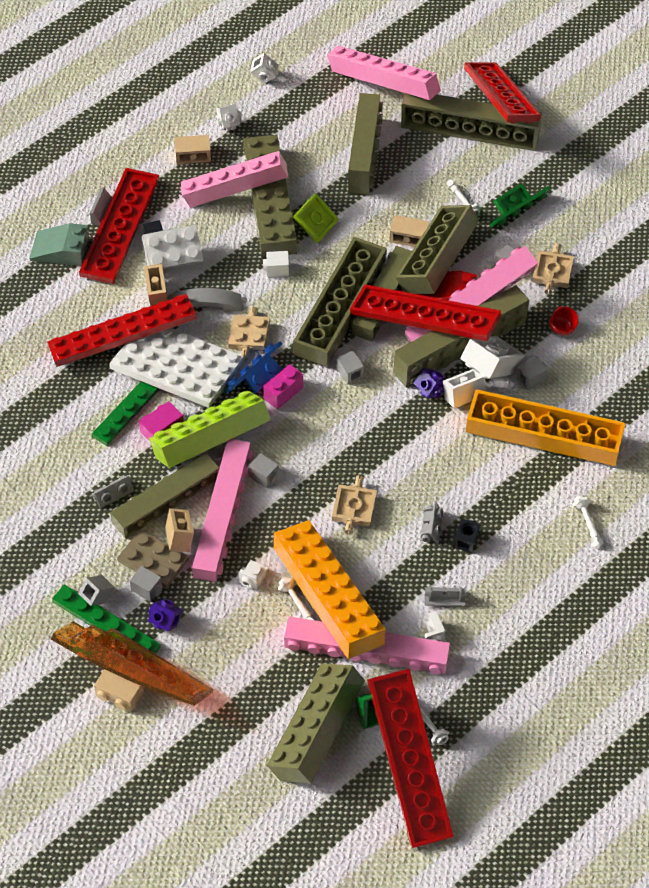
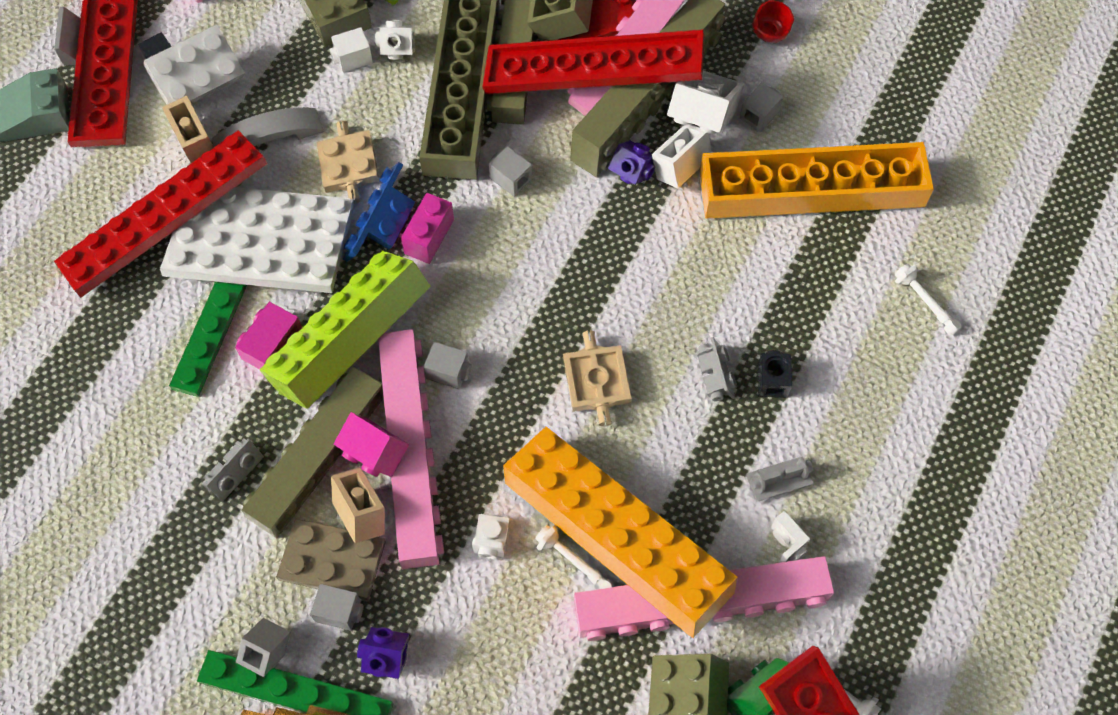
camera: 20 degrees left, 10 degrees up
(199, 498) = (371, 445): none -> dark pink brick
(313, 268) = (405, 35): none -> white brick

